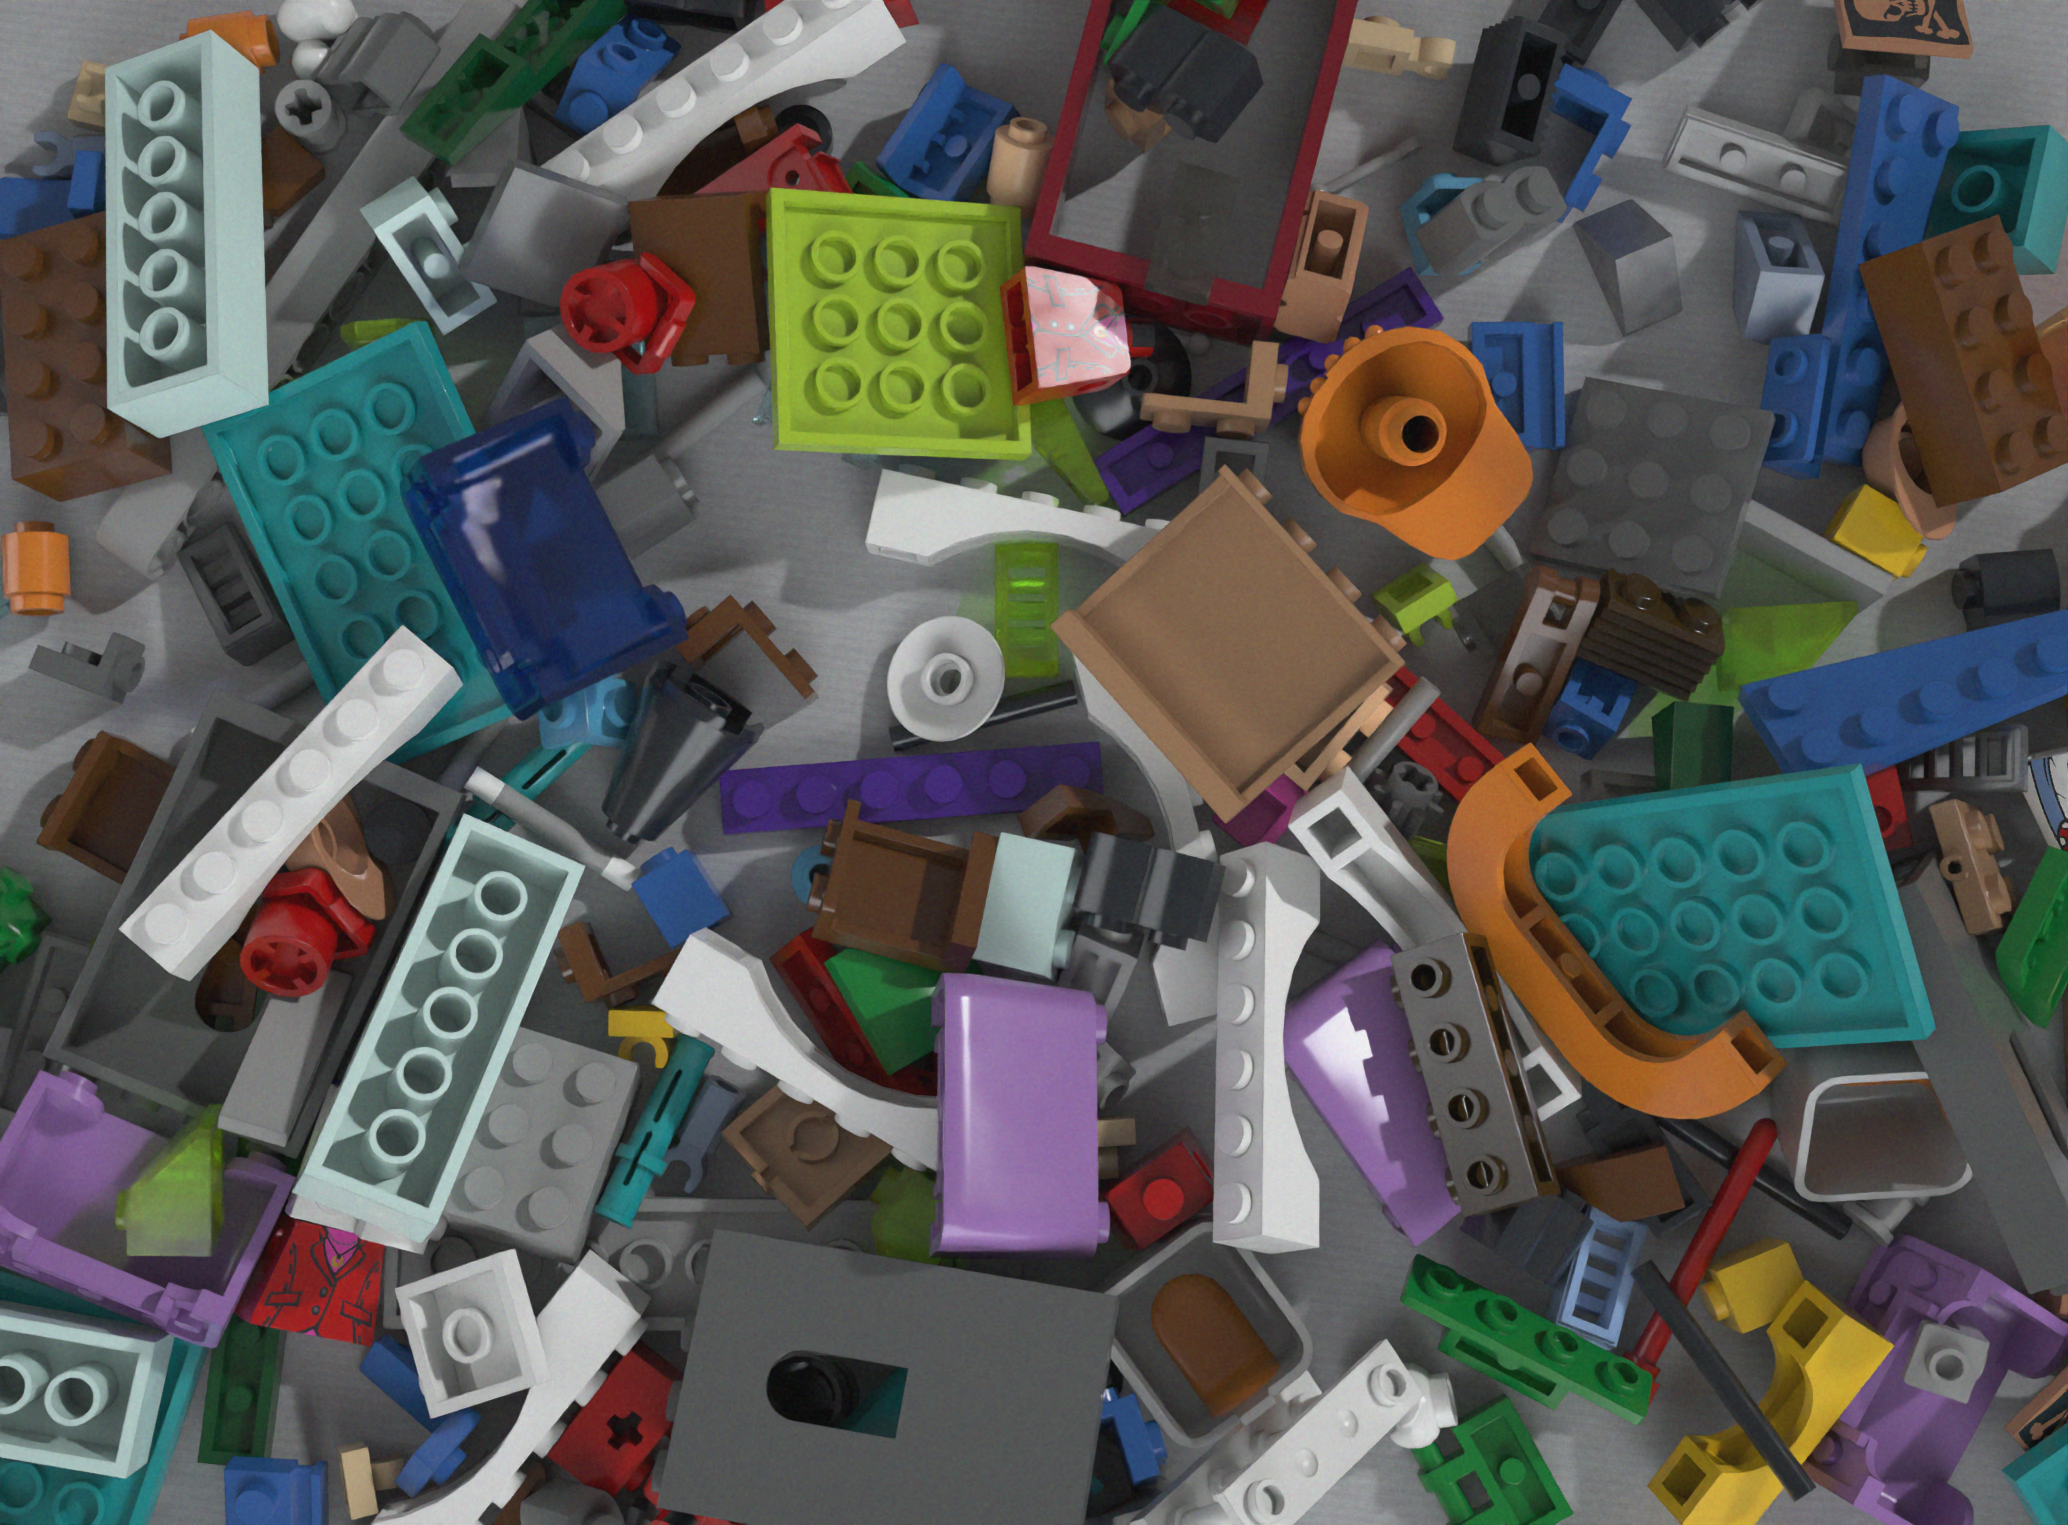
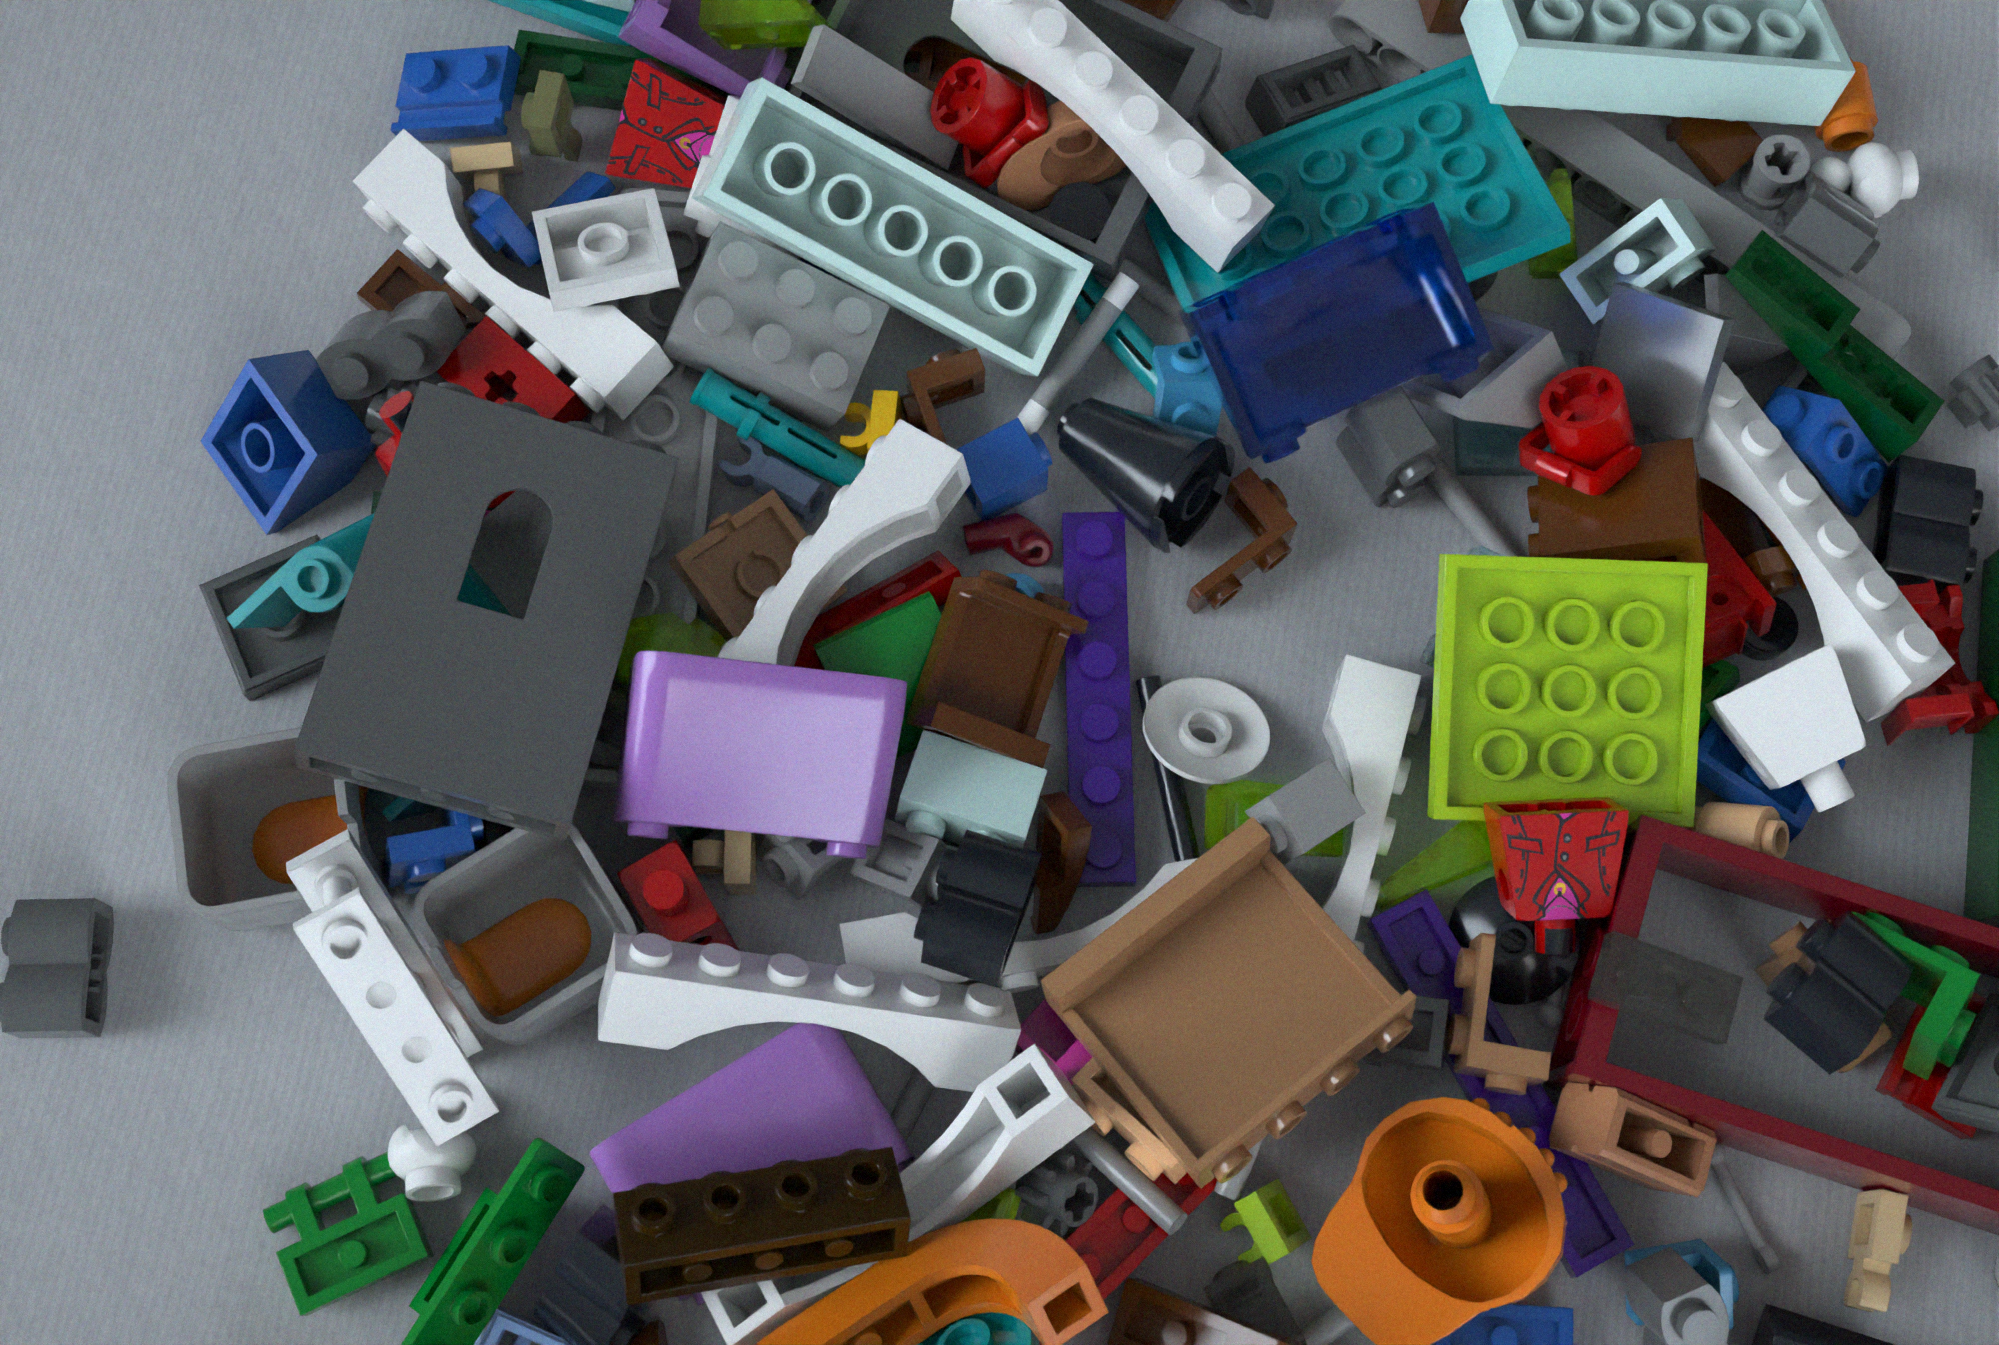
camera: 95 degrees right, 10 degrees down
(310, 1414) = (548, 117): none -> olive plate
(749, 881) = (1013, 535): none -> dark red arm
(813, 1390) = (510, 552): black wheel -> none
(917, 107) = (1796, 726): none -> white torso
(1031, 577) = (1306, 811): none -> light grey brick

